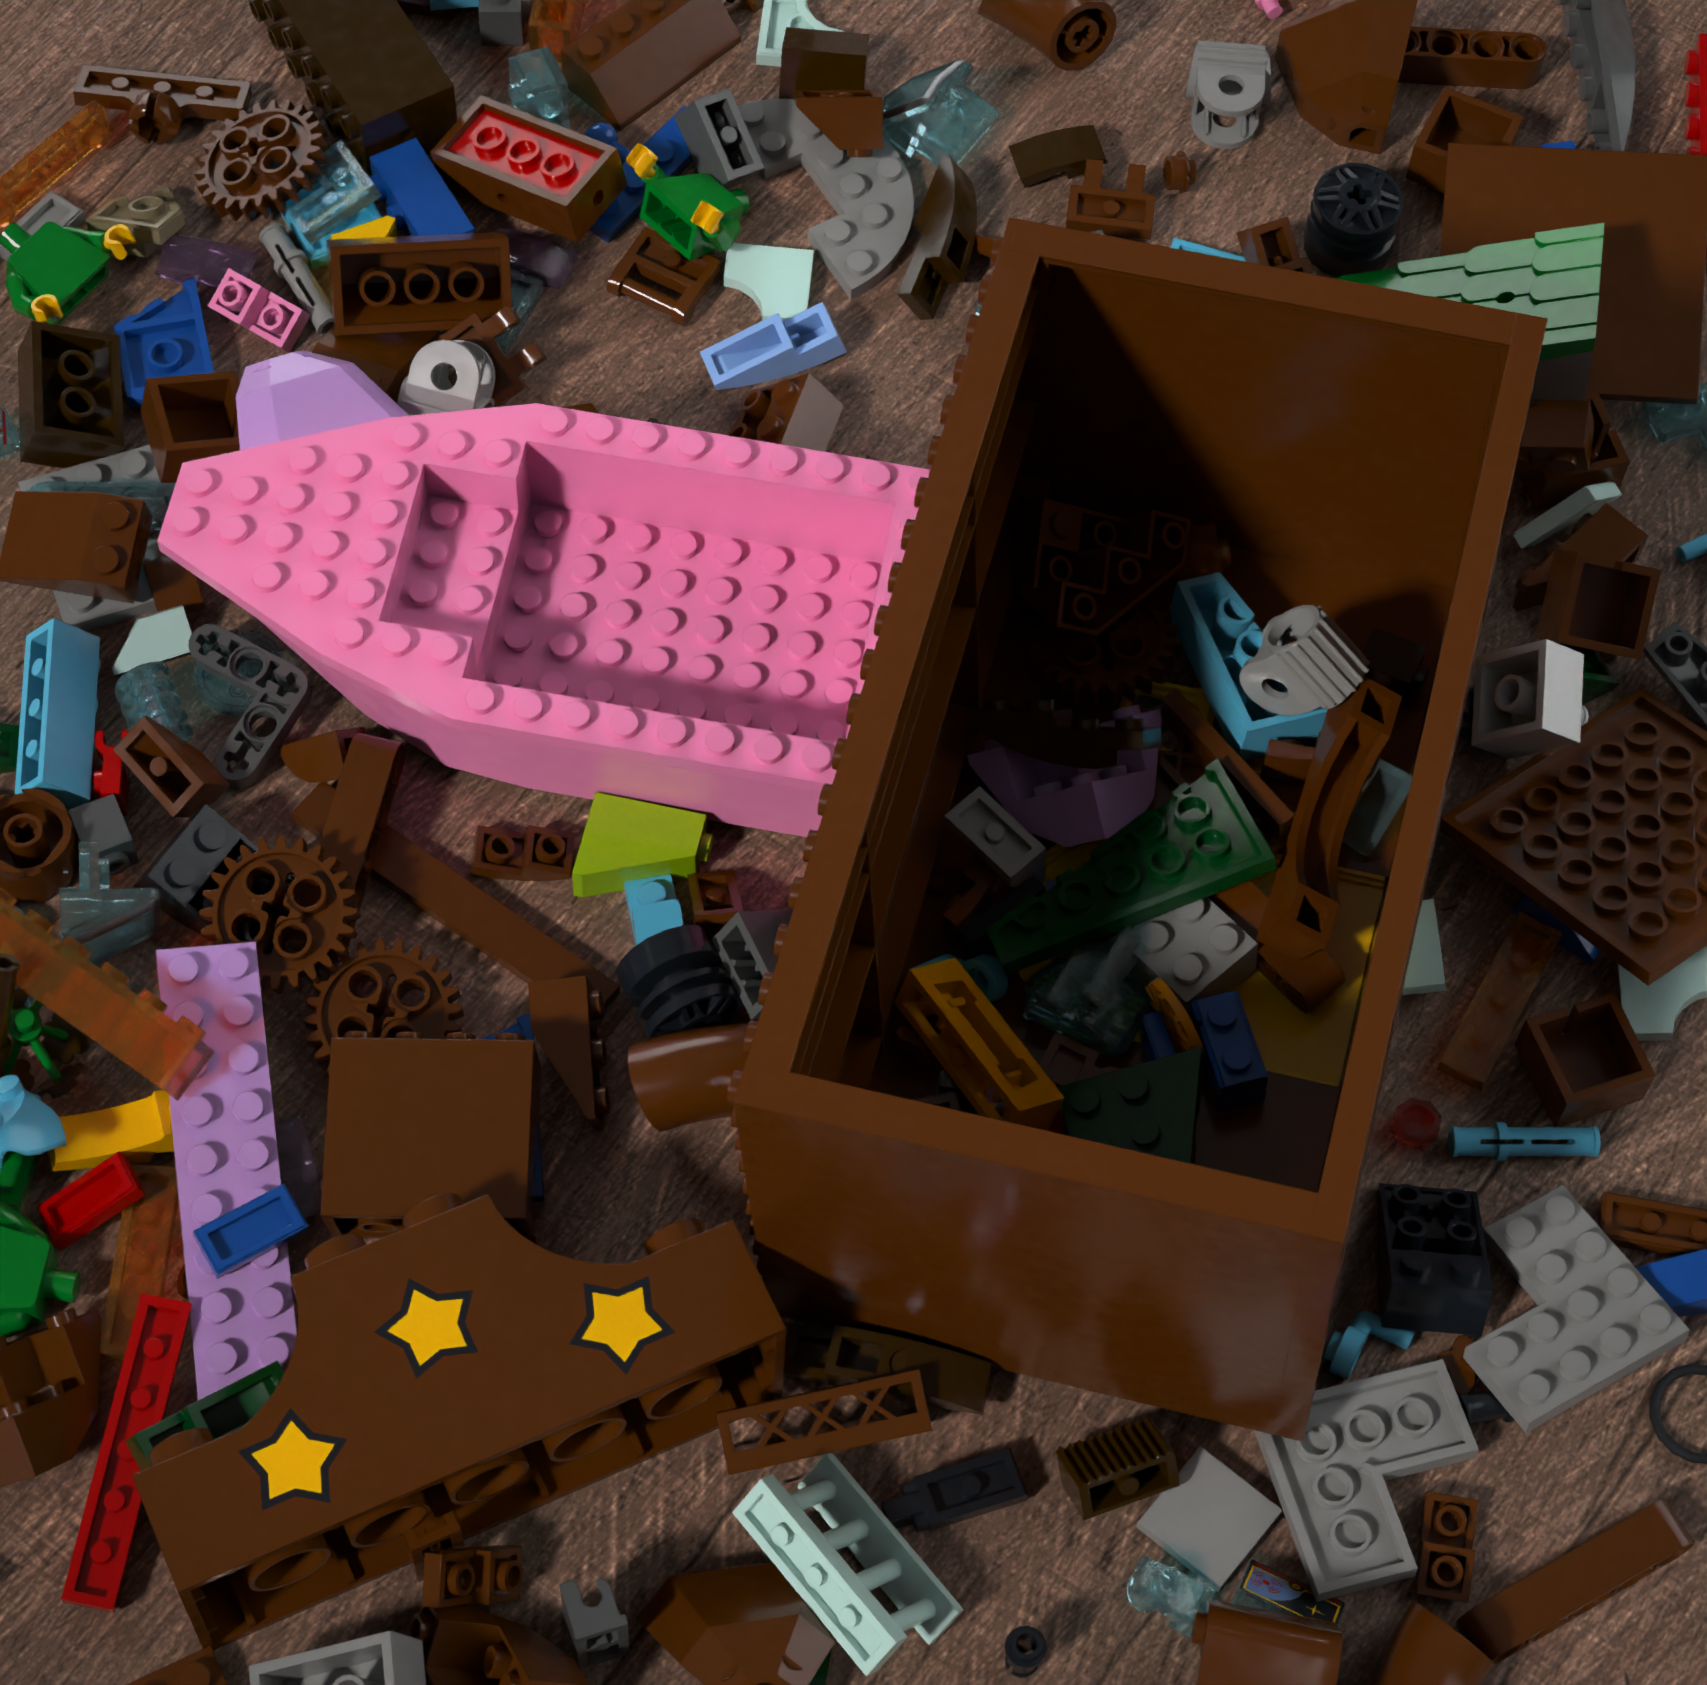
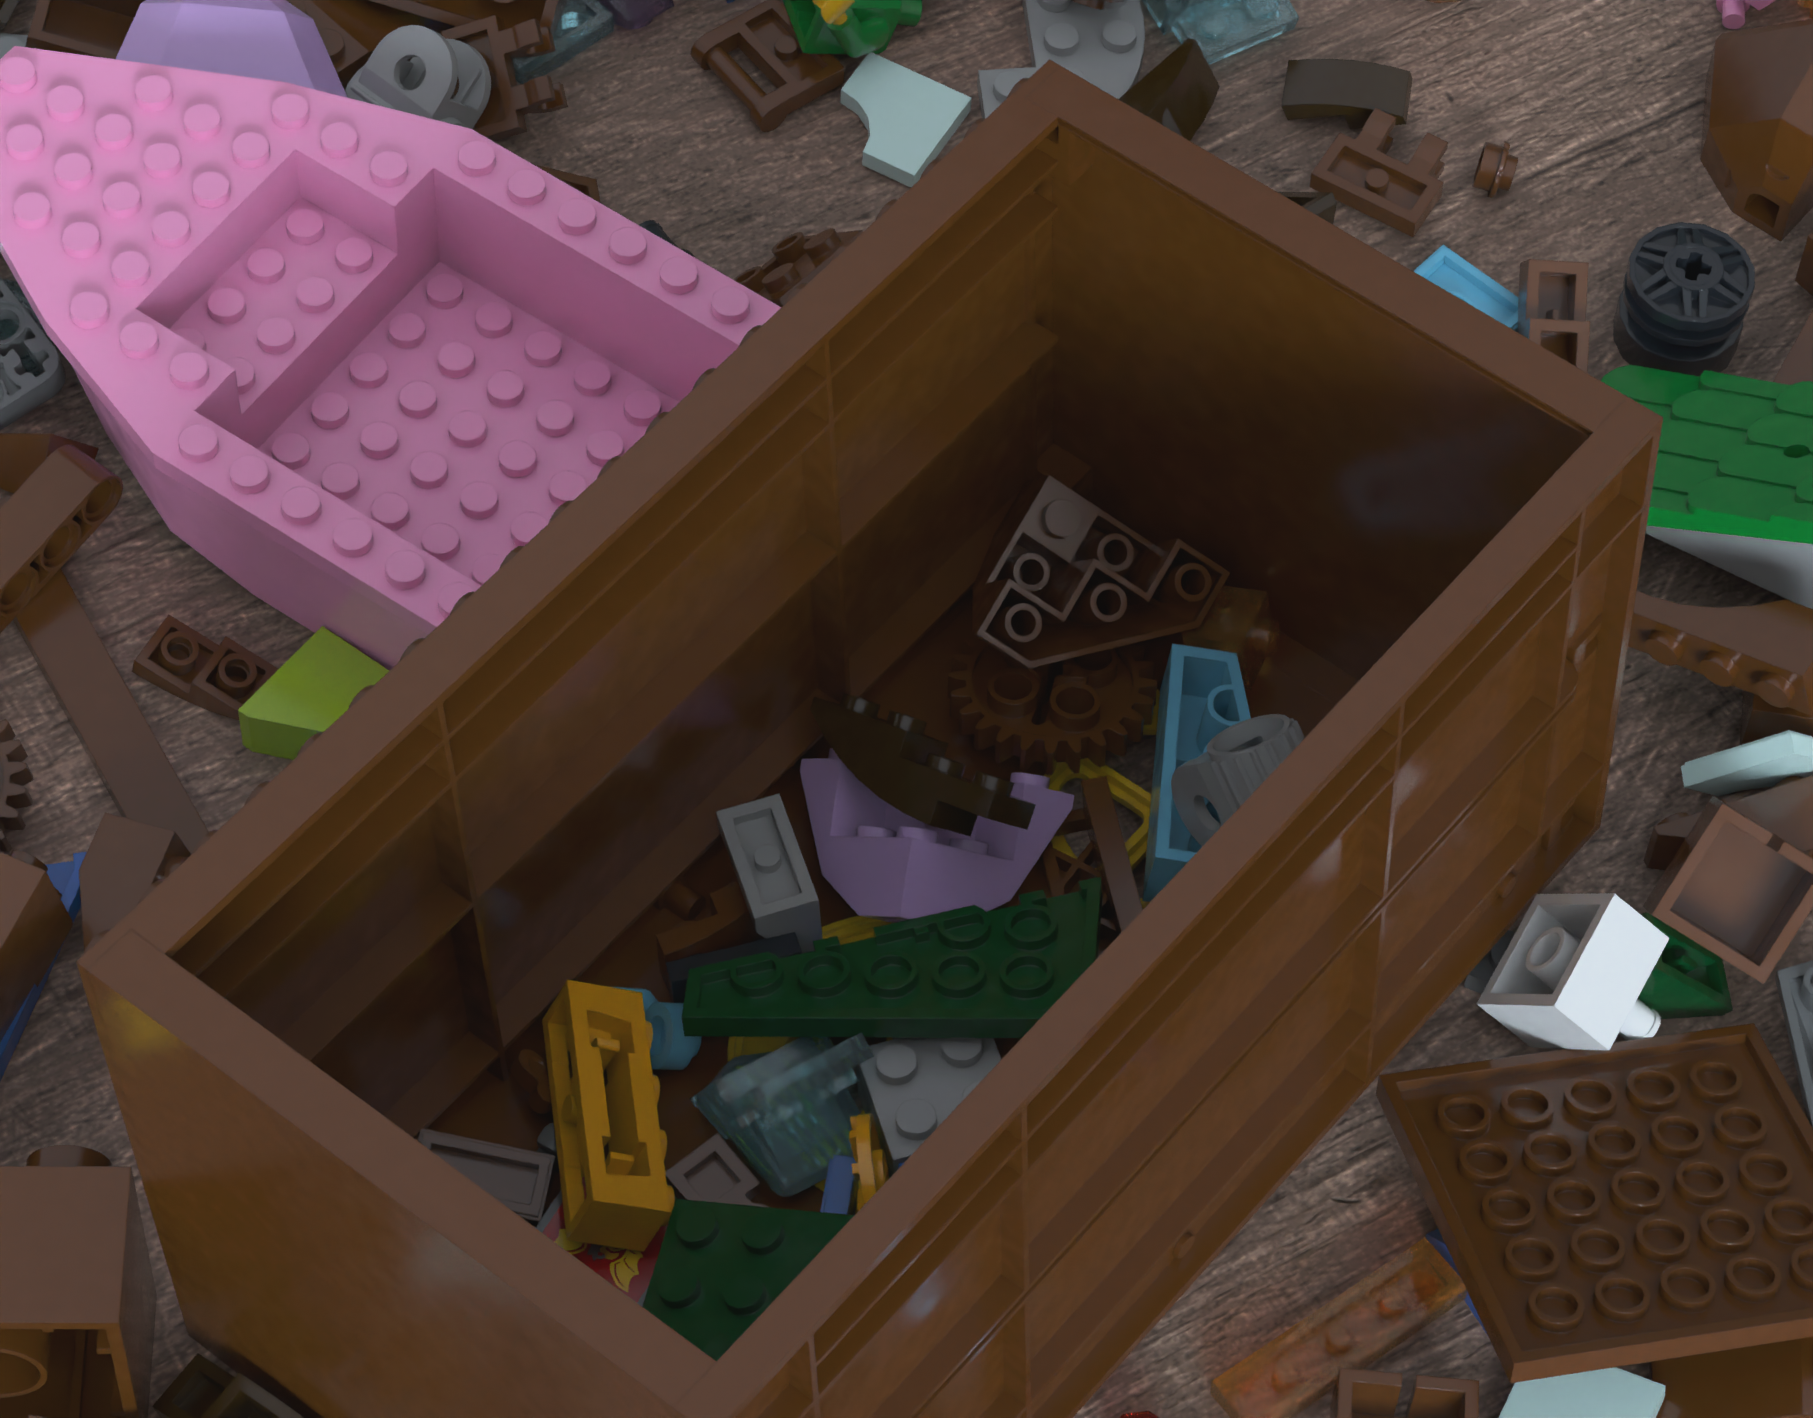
camera: 25 degrees right, 5 degrees down
(774, 349) = (832, 190): light blue slope -> none
(1229, 83) = (1614, 80): light grey piece -> none
(1425, 964) = (1266, 1242): light aqua slope -> none

